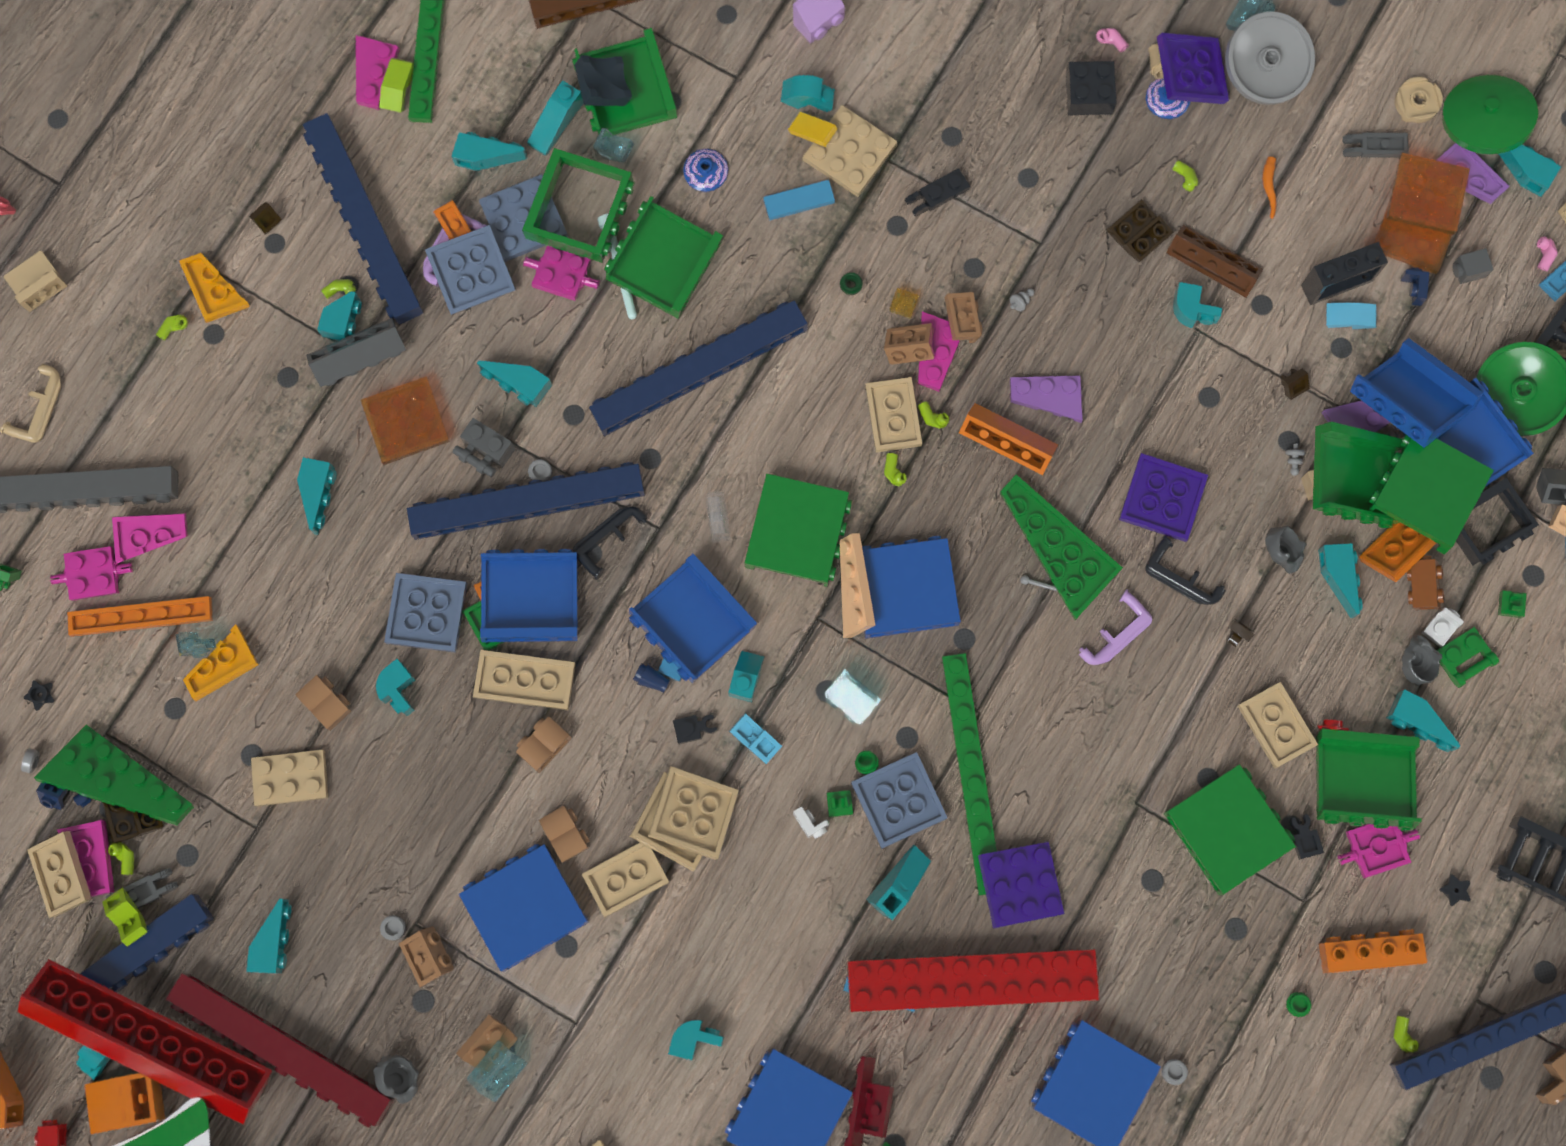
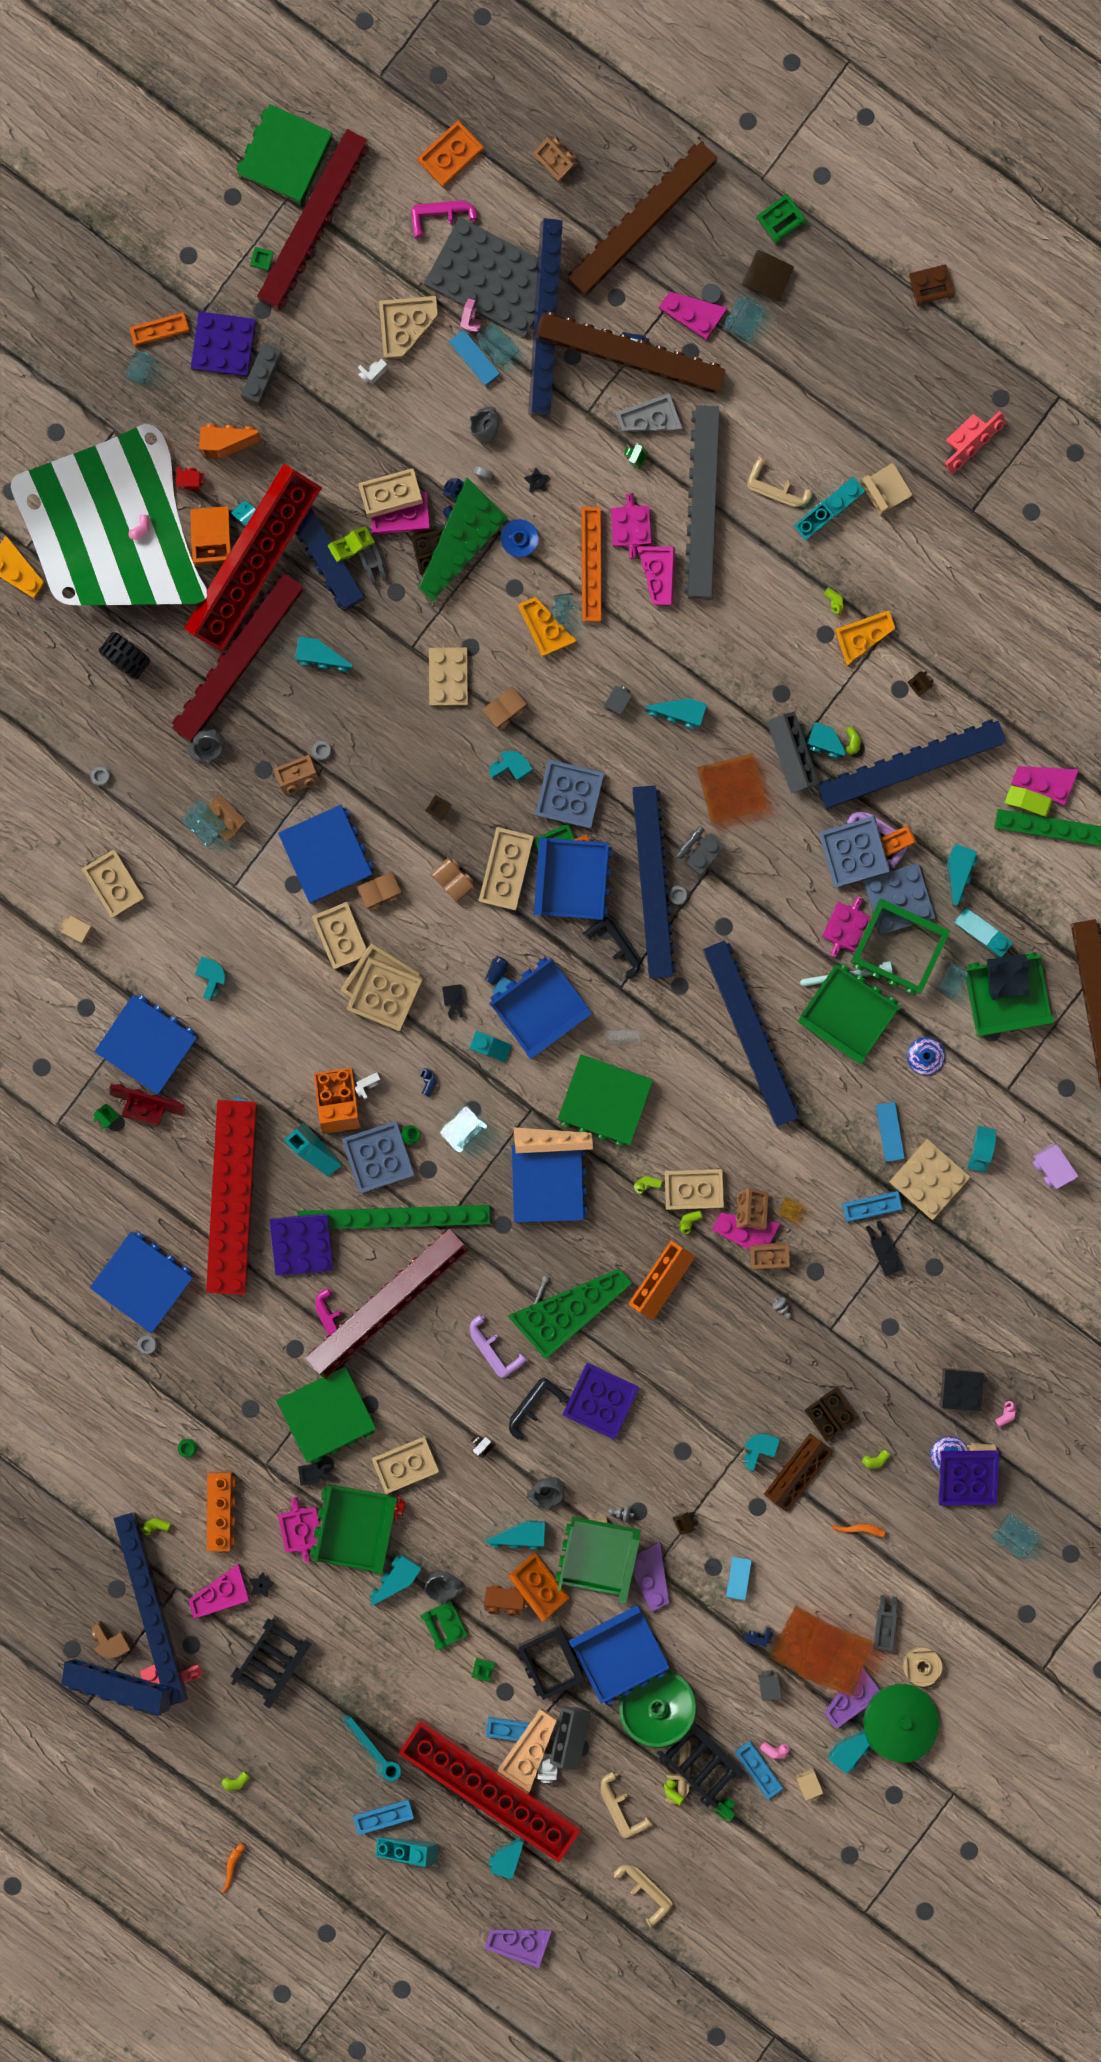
camera: 90 degrees right, 10 degrees up
(59, 341) = (829, 508): none -> teal slope
(102, 699) = (519, 528): none -> blue dish
(125, 855) = (399, 545): lime arm -> none
(306, 565) = (618, 700): none -> dark grey brick
(454, 770) = (438, 808): none -> dark brown tile
(521, 379) = (755, 887): teal slope -> none
(755, 738) = (439, 1048): medium azure slope -> none
(797, 746) = (429, 1079): none -> dark blue arm
(812, 129) = (950, 1149): yellow tile -> none
(834, 859) = (337, 1100): none -> orange slope
(839, 803) = (380, 1109): green tile -> none
(851, 277) = (806, 1162): dark green plate -> none
(889, 211) = (872, 1206): none -> dark azure tile
(1049, 393) = (698, 1319): medium lavender wing -> none
(1082, 768) = (386, 1303): none -> brick
(1120, 836) = (323, 1312): none -> dark pink piece
(1270, 58) = (971, 1545): light grey dish -> none
(1344, 273) = (771, 1575): black window -> none
(1417, 393) = (660, 1617): blue panel -> none
(1431, 490) = (579, 1614): green panel -> none
(1442, 626) = (470, 1609): white bracket -> none
(1477, 940) = (221, 1594): none -> dark pink wing

